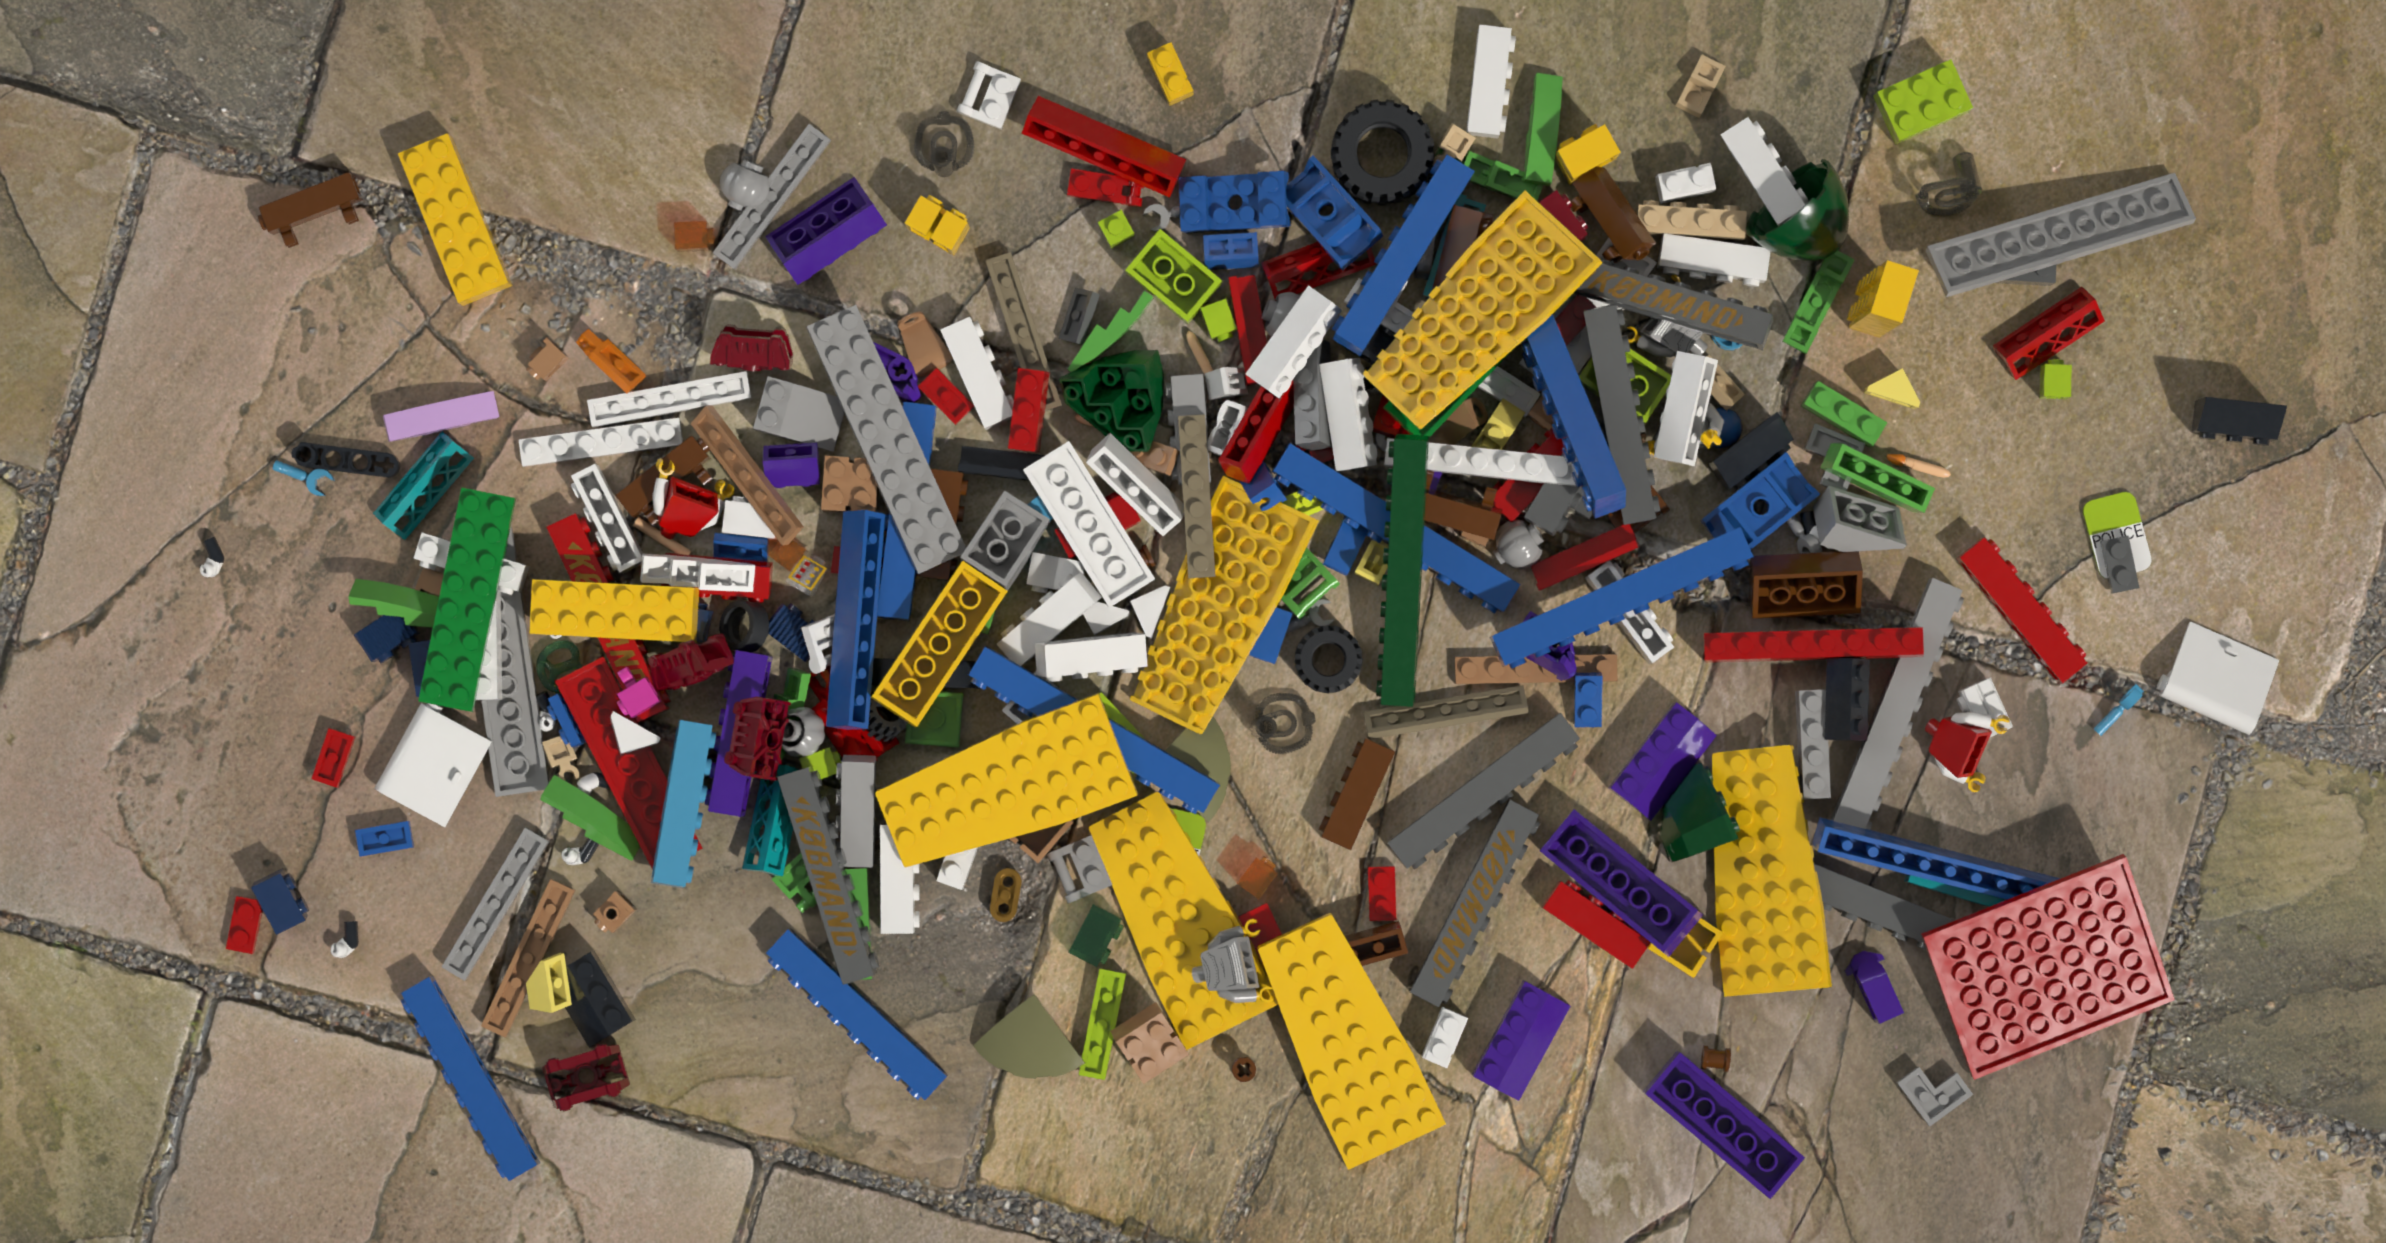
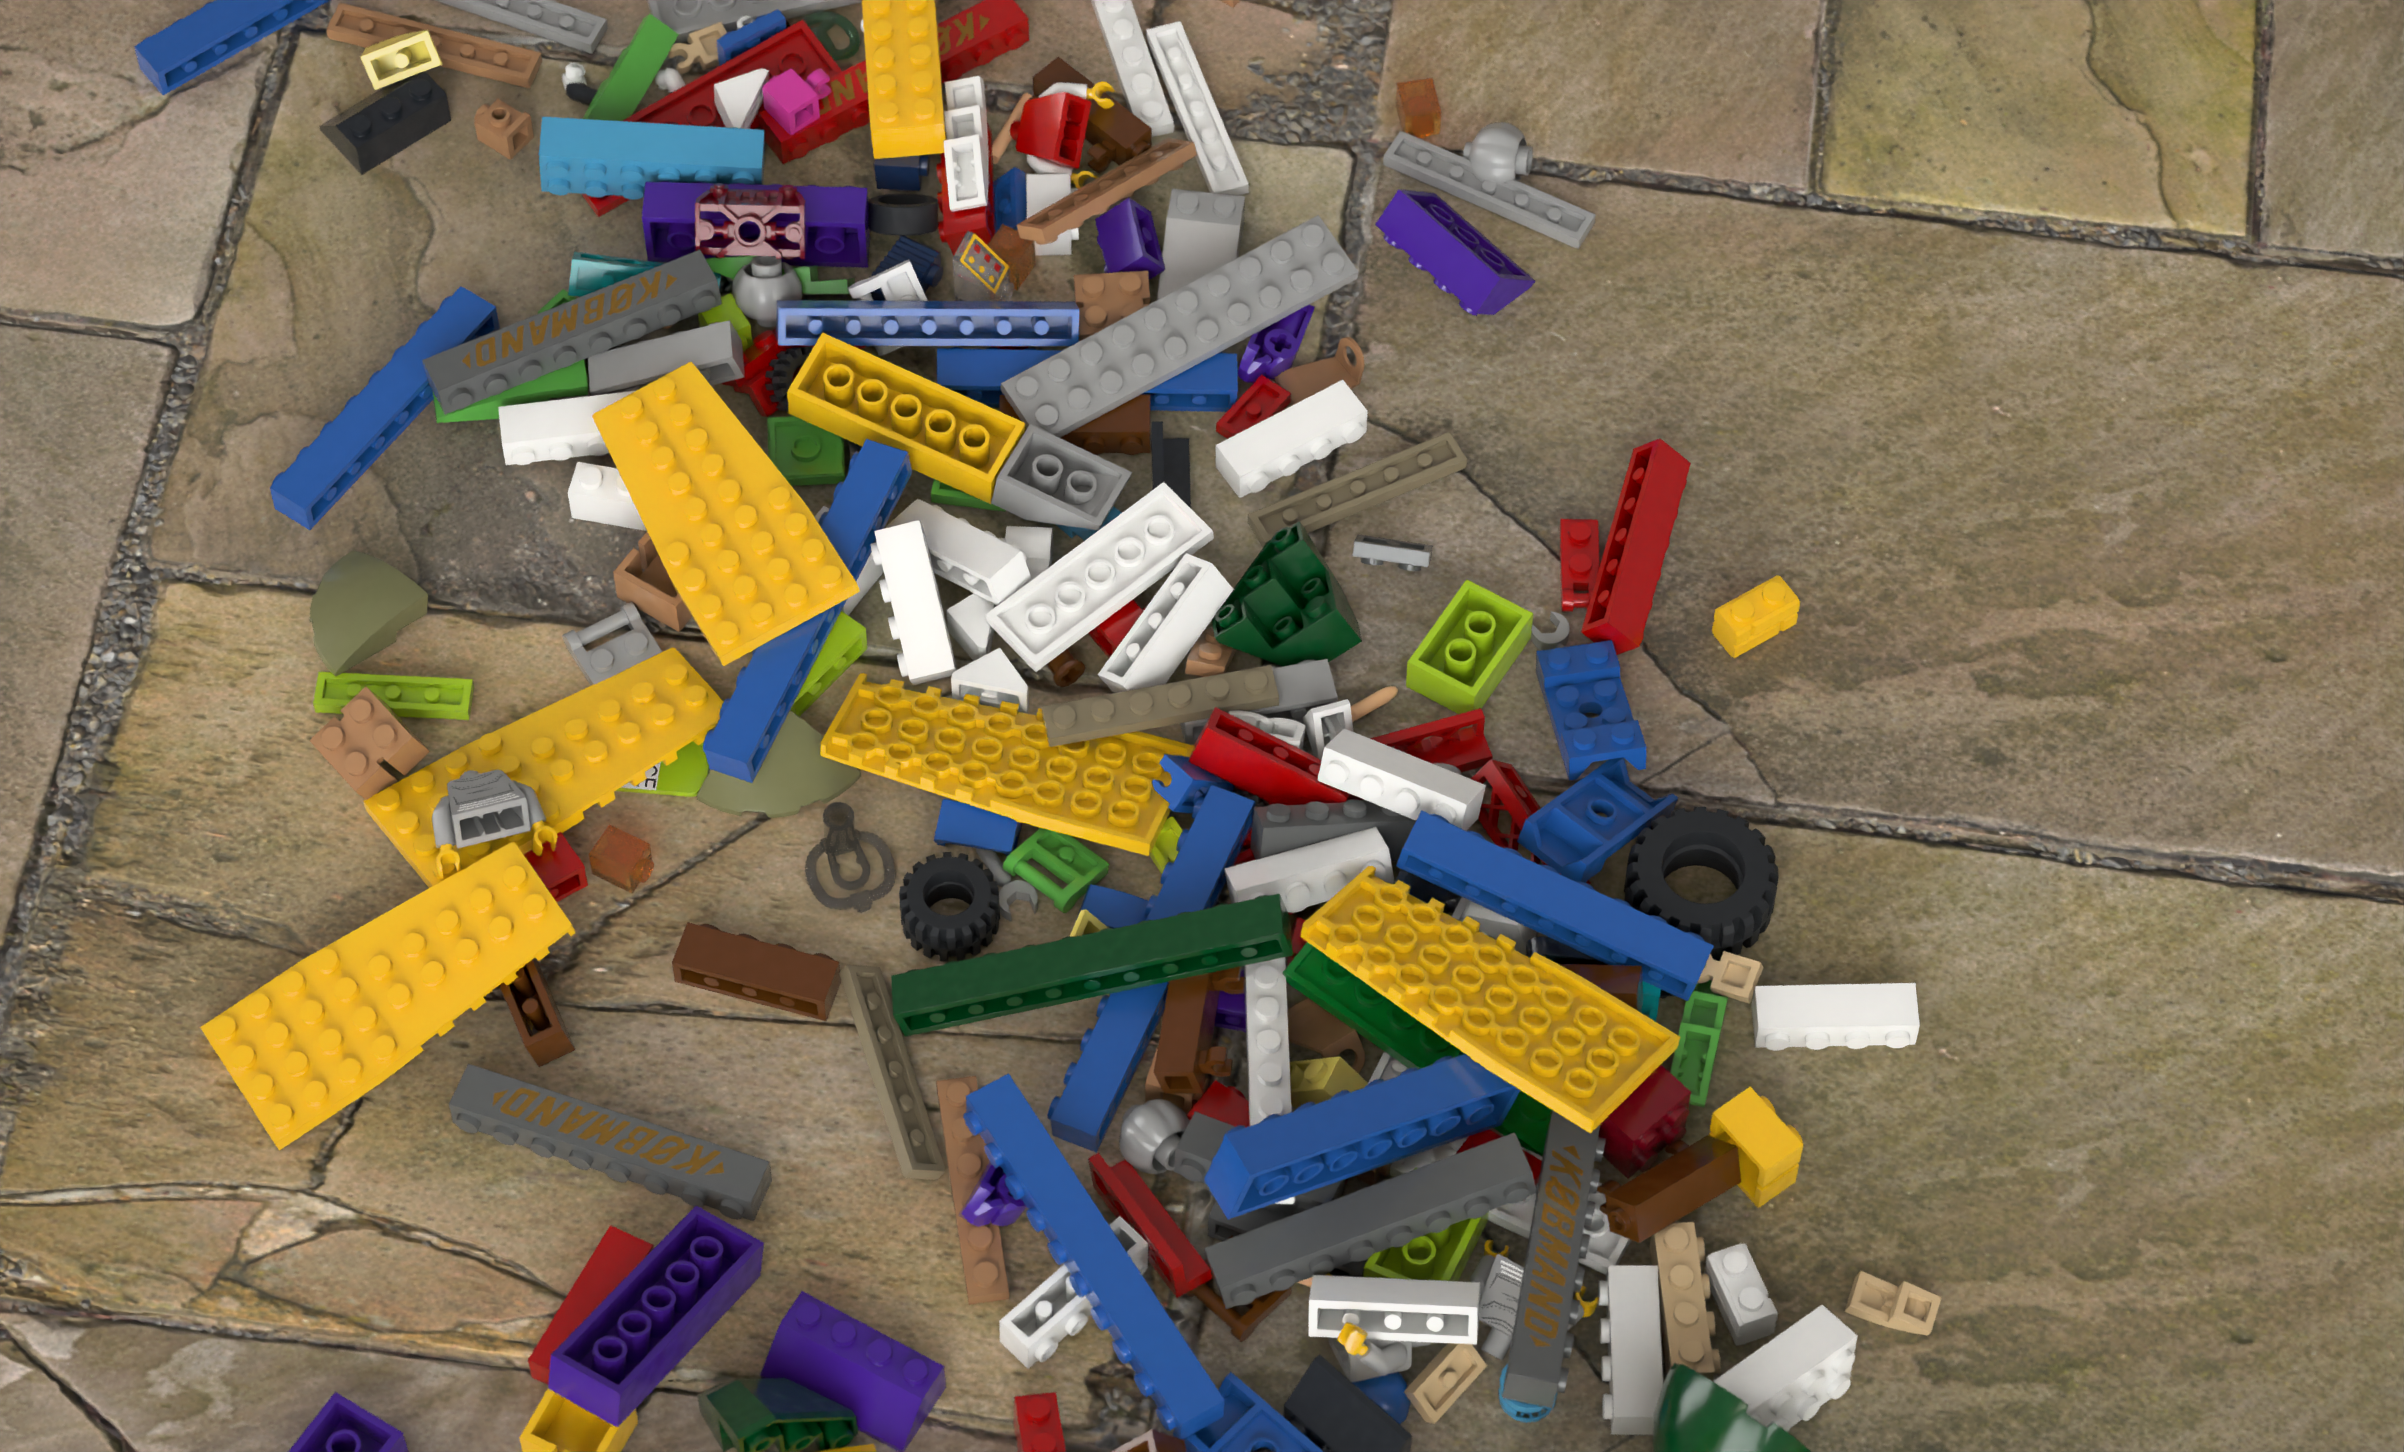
camera: 80 degrees right, 30 degrees down
(584, 1091) = (299, 111): dark red piece -> none
(608, 518) = (1013, 61): white brick -> none
(611, 361) = (1235, 44): orange hinge -> none
(690, 663) = (832, 154): dark red piece -> none
(752, 349) = (1278, 180): dark red piece -> none
(935, 223) = (1487, 364): yellow piece -> none
(942, 159) = (1575, 361): clear smoke piece -> none
(997, 98) = (1678, 427): white plate -> none
(1004, 894) = (567, 559): pearl gold plate -> none
(1028, 410) = (1250, 493): red brick -> none
(1096, 935) = (519, 670): clear green brick -> none
(1102, 340) = (1365, 583): bright green slope -> none
(1116, 229) = (1523, 577): lime brick -> none
(1219, 320) = (1416, 709): lime brick -> none
(1231, 251) = (1519, 718): blue hinge -> none
(1235, 1070) = (340, 874): reddish brown bush -> none
(1382, 893) = (614, 1026): red plate -> none
(1444, 1037) = (405, 1125): white brick -> none
(1483, 791) = (780, 1134): dark grey brick -> none
(1520, 1040) = (408, 1229): dark purple slope -> none
(1543, 129) = (1789, 1090): bright green slope -> none
(1588, 700) = (934, 1258): blue plate -> none

